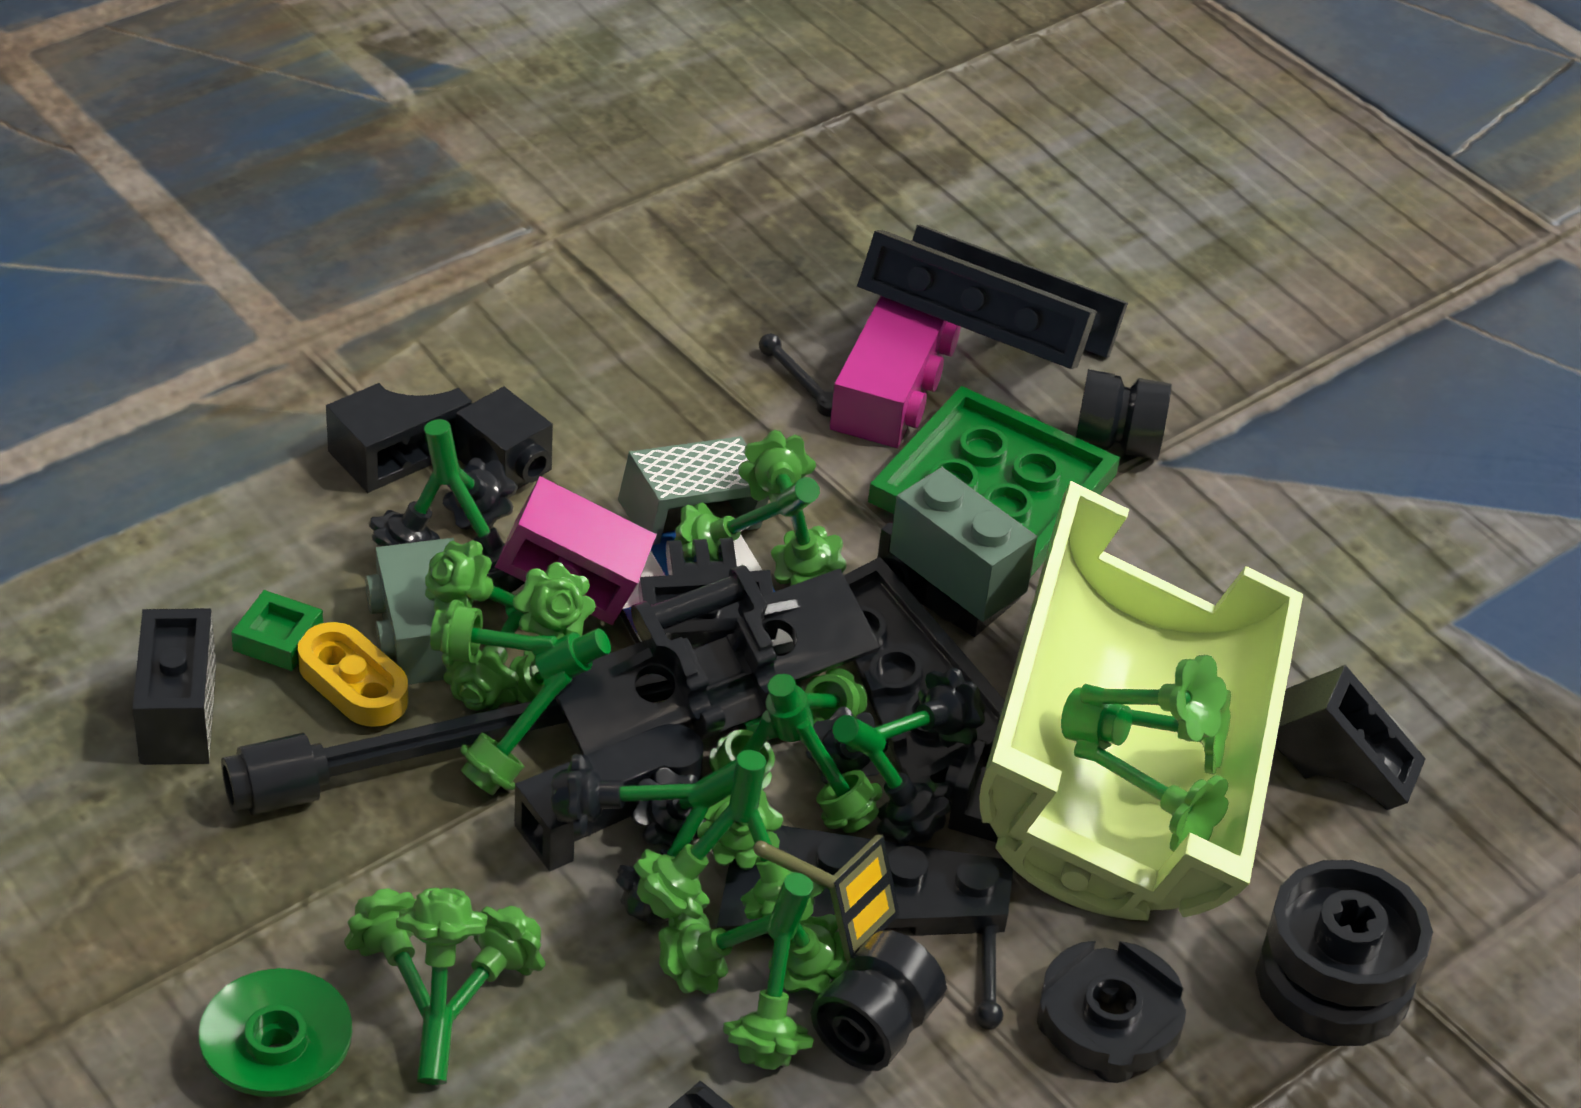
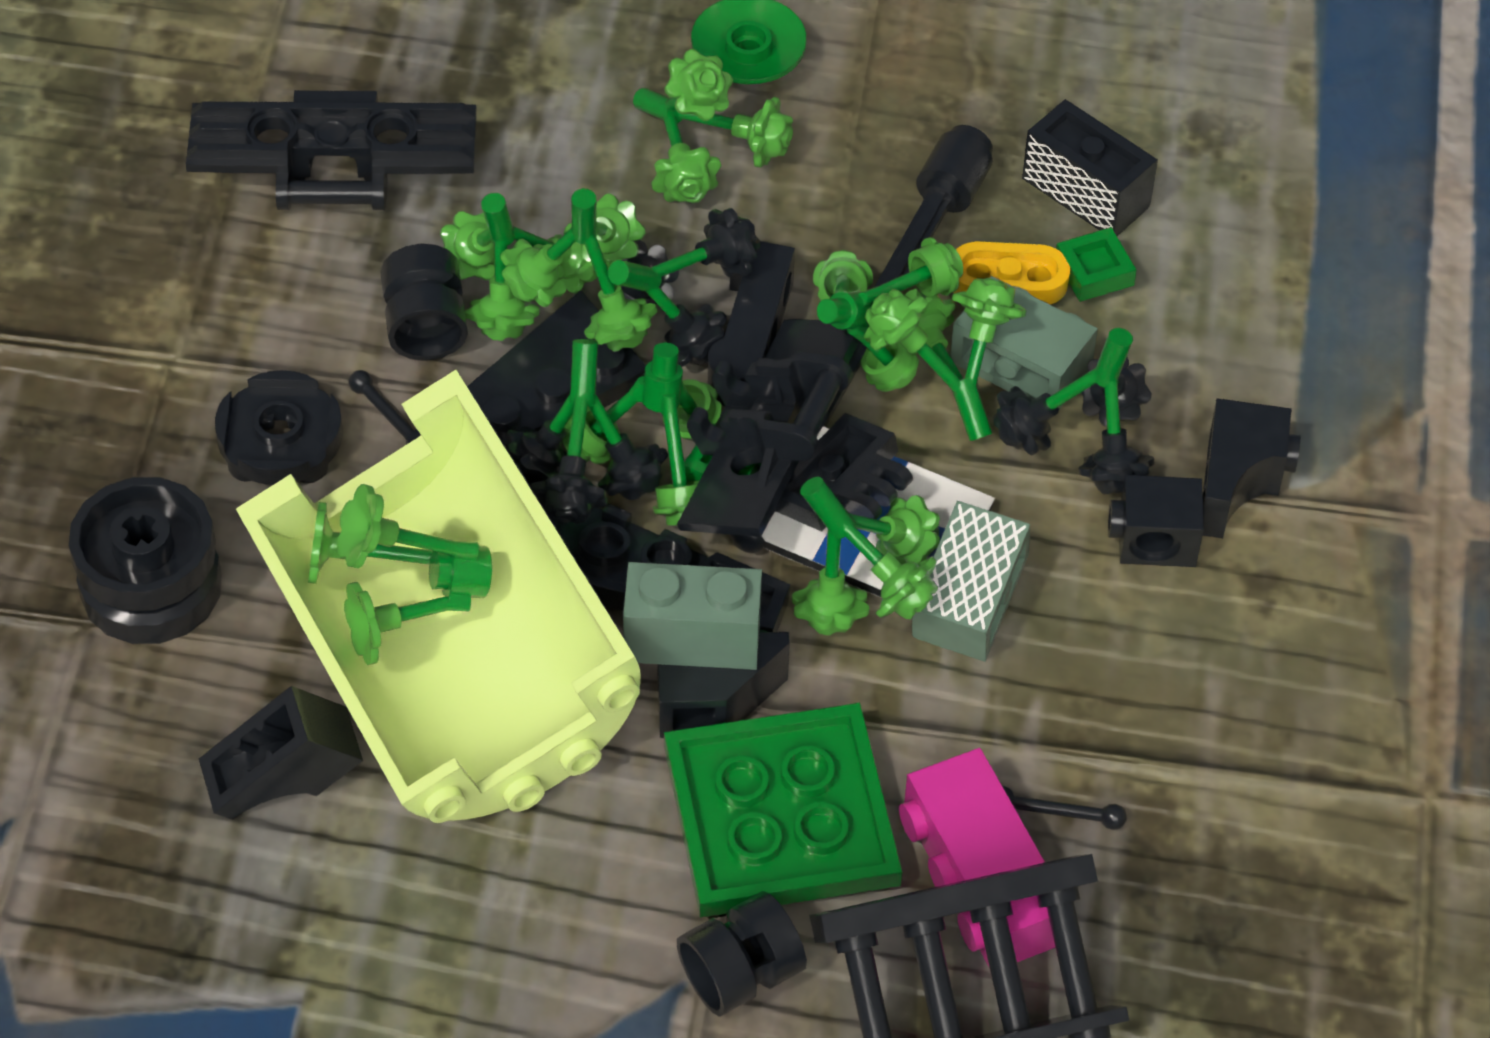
camera: 140 degrees right, 10 degrees up
(582, 537) = (964, 421): brick -> none
(859, 891) = (488, 313): piece -> none

